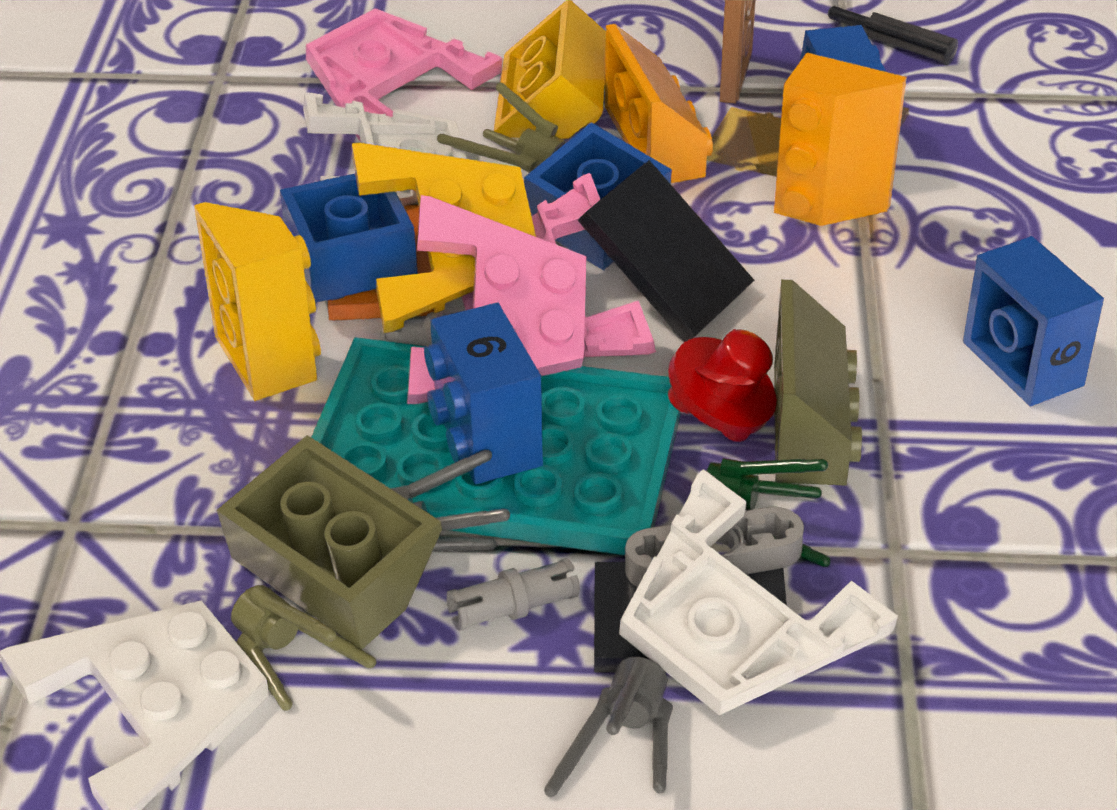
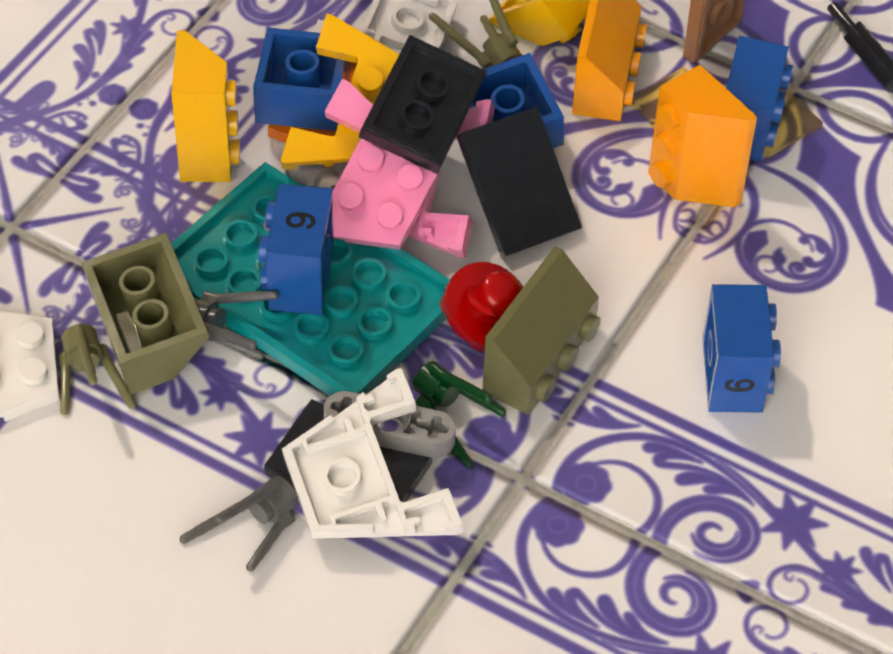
camera: 25 degrees right, 10 degrees up
(512, 594) = (244, 398): light grey pin -> none
(527, 195) = (422, 104): none -> black tile

